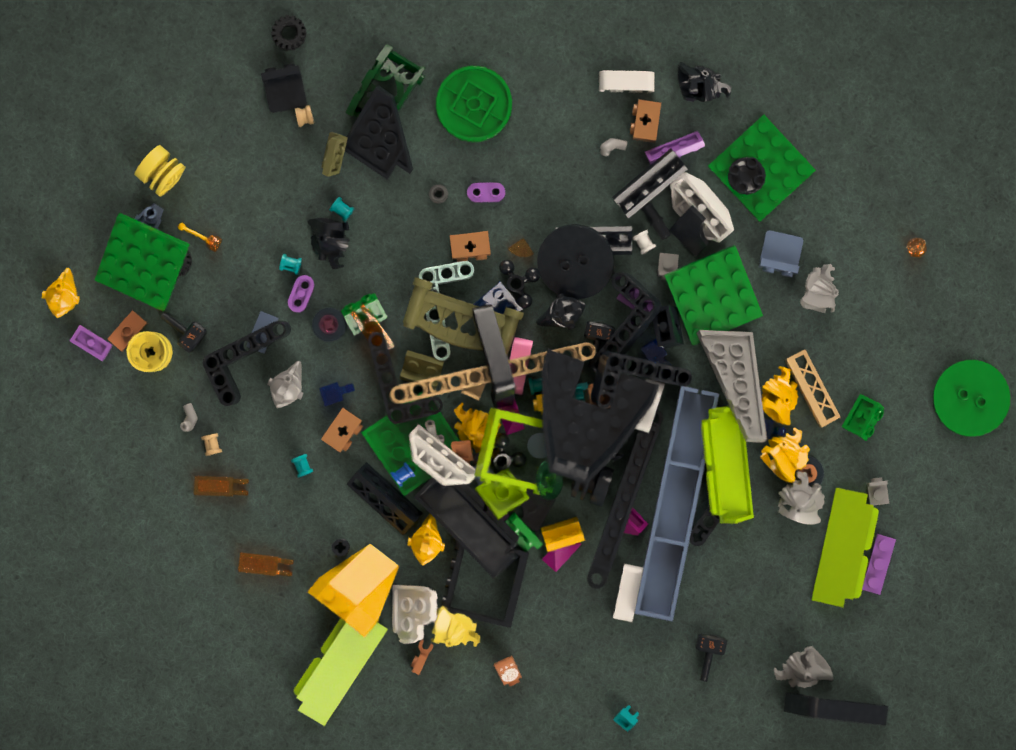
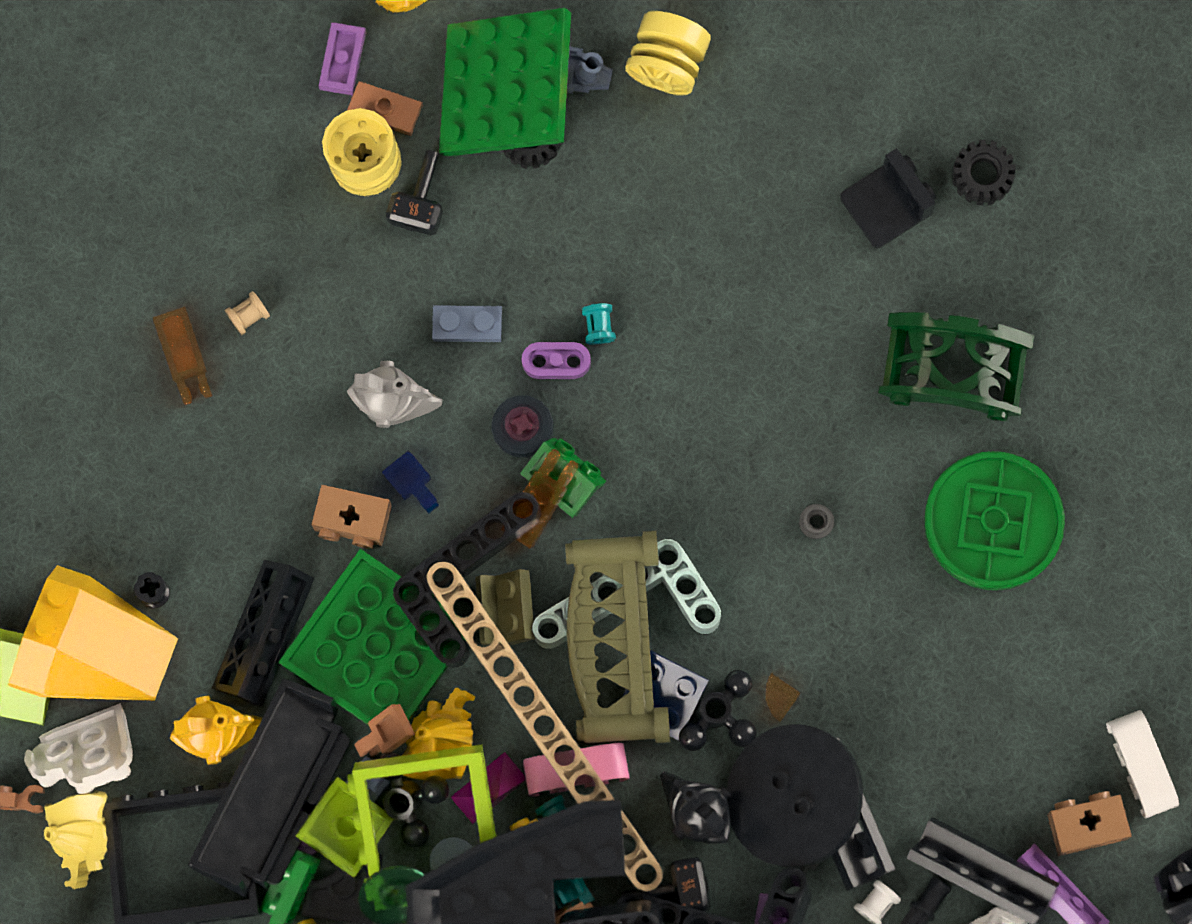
camera: 70 degrees right, 10 degrees down
(190, 419) = (277, 264): light grey arm -> none
(211, 241) = (586, 182): hinge -> none
(238, 354) = (416, 296): black beam -> none
(262, 564) = (76, 474): clear orange hinge -> none
(302, 465) = (267, 473): teal bush -> none
(304, 116) = (855, 250): tan wheel -> none
(329, 240) = (665, 371): black helmet -> none
(334, 154) = (810, 320): olive bracket -> none
(341, 209) = (725, 371): teal bush -> none
(379, 136) = (871, 380): black wing -> none
(402, 474) = (313, 643): blue bush -> none
(430, 427) = (402, 667): light grey arm -> none
(439, 459) = (359, 691): white wedge -> none
(476, 391) = (500, 710): tan bracket -> none
(478, 239) = (749, 588): medium nougat brick -> none
(486, 192) = (852, 599): medium lavender plate -> none
(495, 355) = (572, 715): black beam -> none
(611, 144) = (1024, 781): light grey arm -> none

